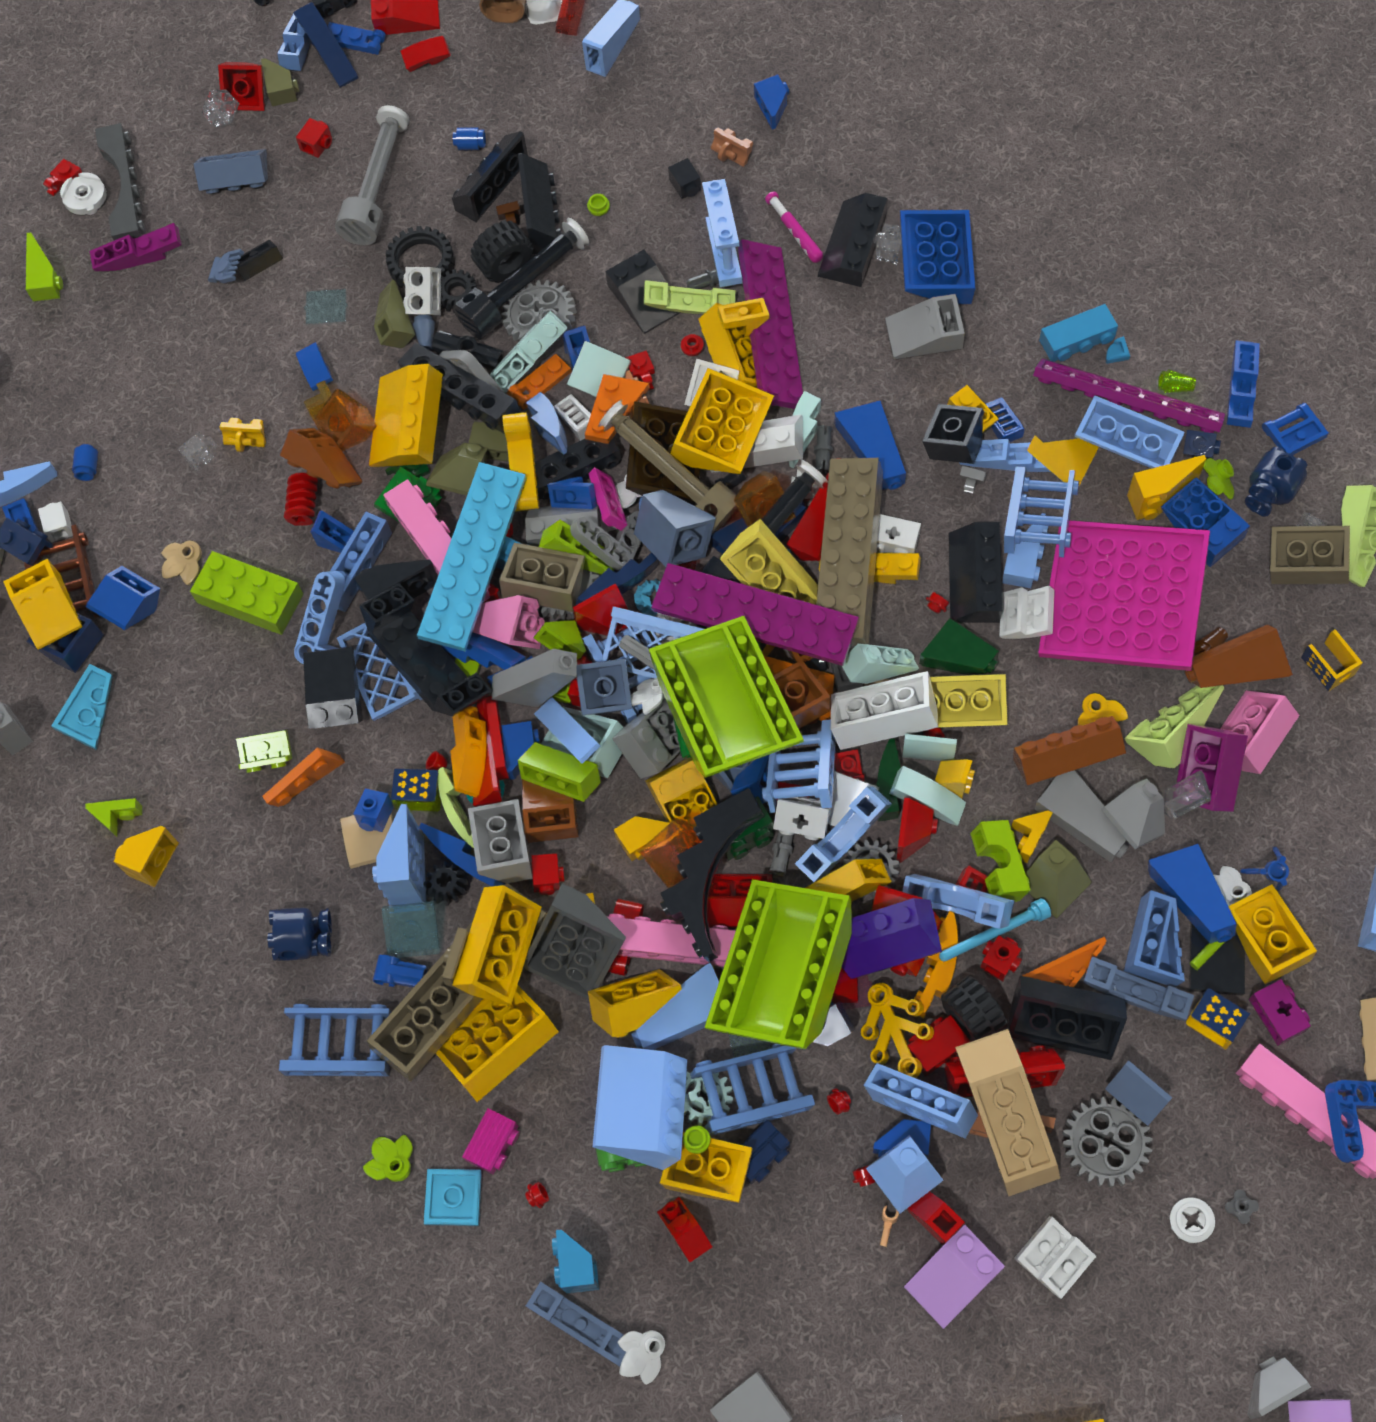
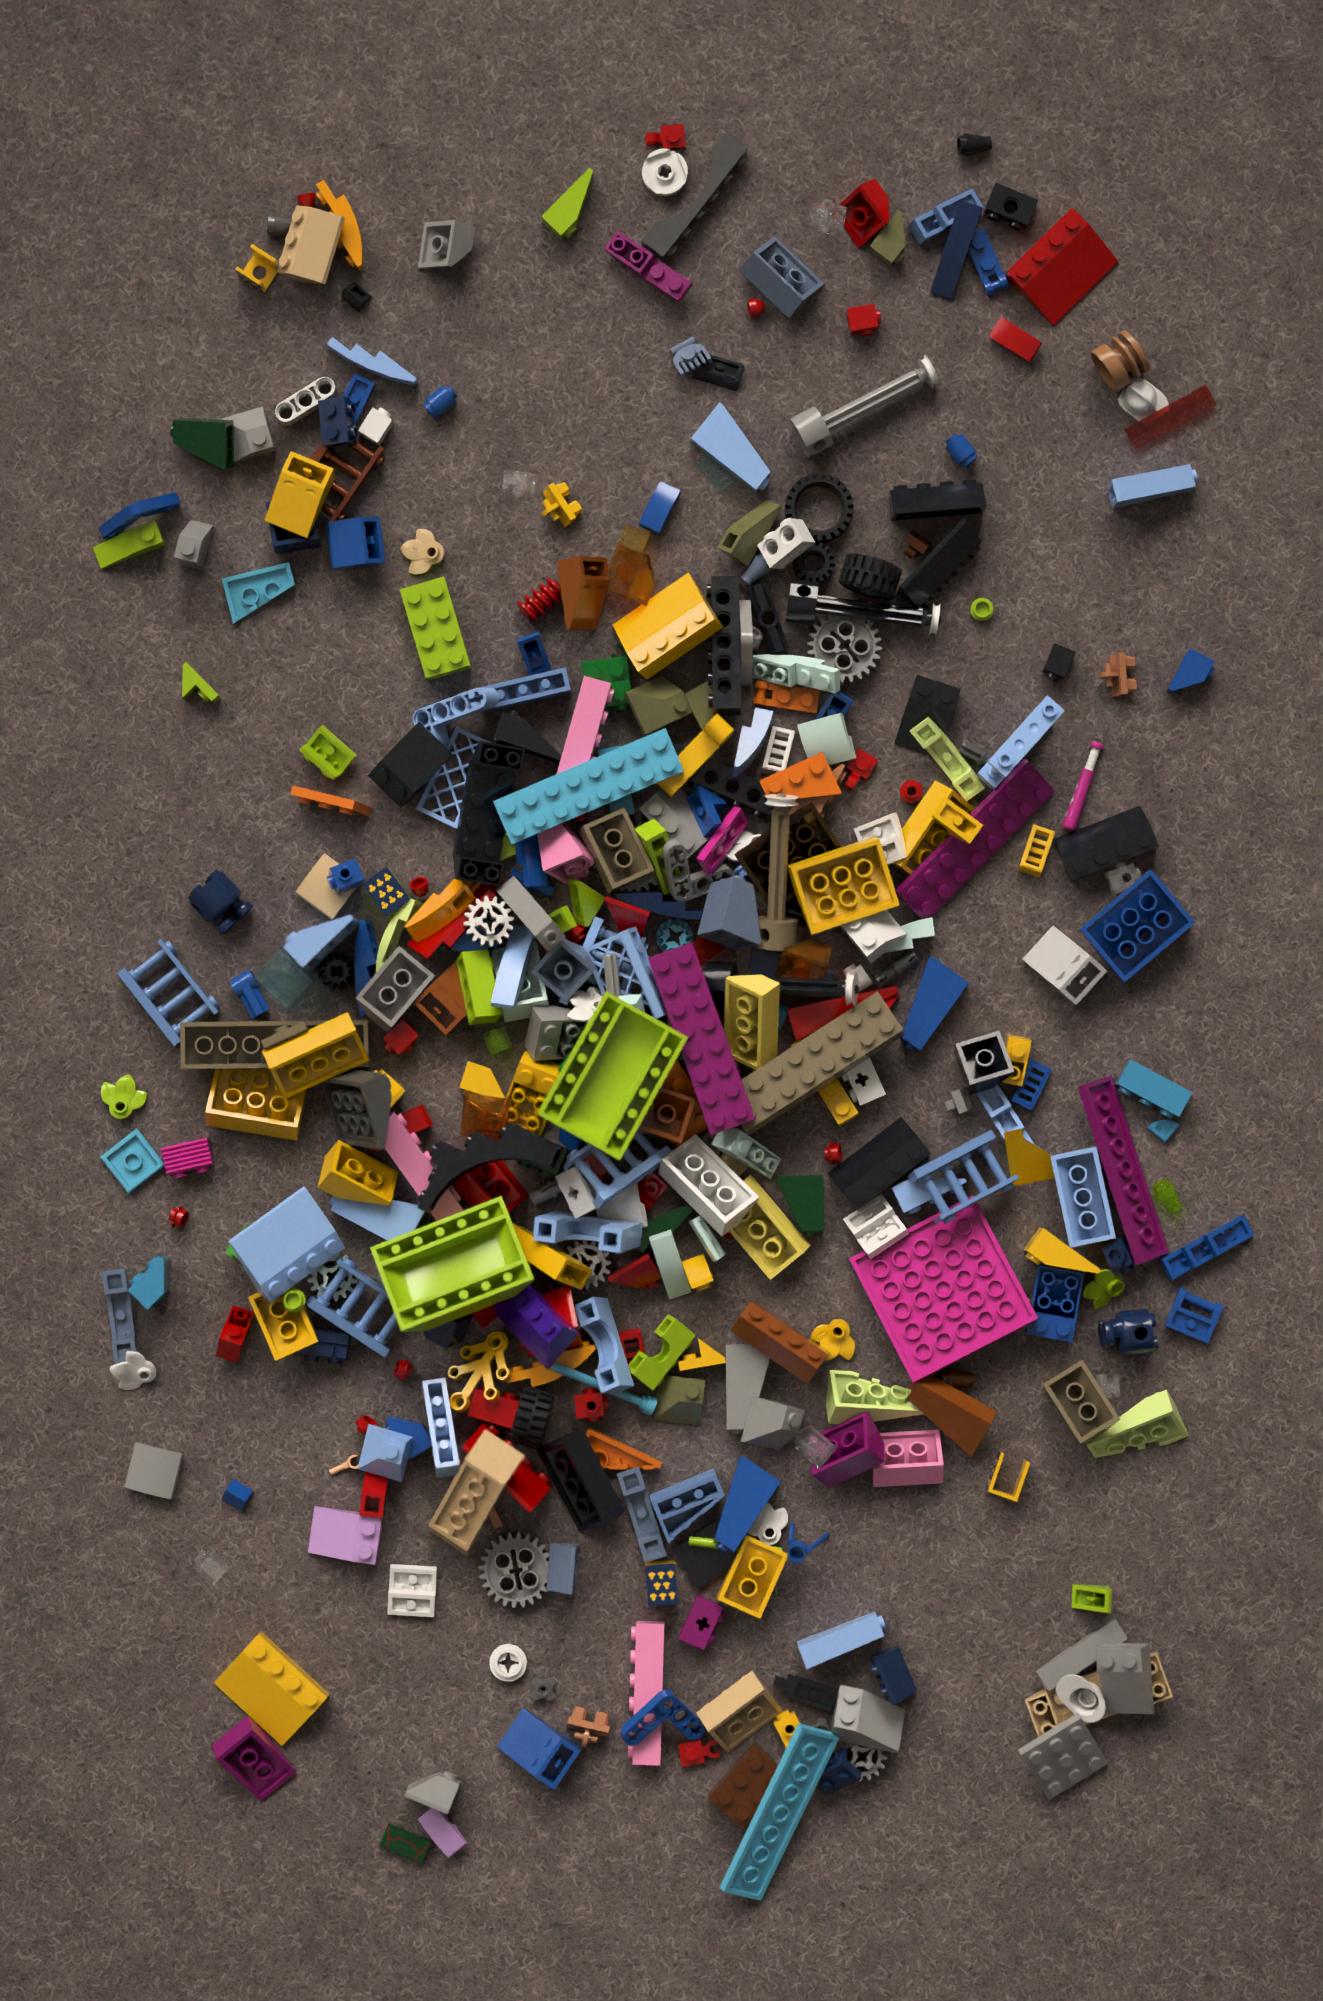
camera: 45 degrees right, 20 degrees up
(146, 854) = (182, 742): yellow slope -> none
(236, 202) = (755, 307): none -> red hinge
(320, 286) = (730, 448): none -> light blue slope
(511, 719) = (499, 920): none -> white gear
(618, 795) = (497, 1040): none -> clear neon green brick
(825, 302) = (1029, 868): none -> yellow slope
(836, 1352) = (237, 1494): none -> blue slope
(1301, 1253) = (539, 1748): none -> blue slope
(1313, 1194) = (598, 1727): none -> nougat hips

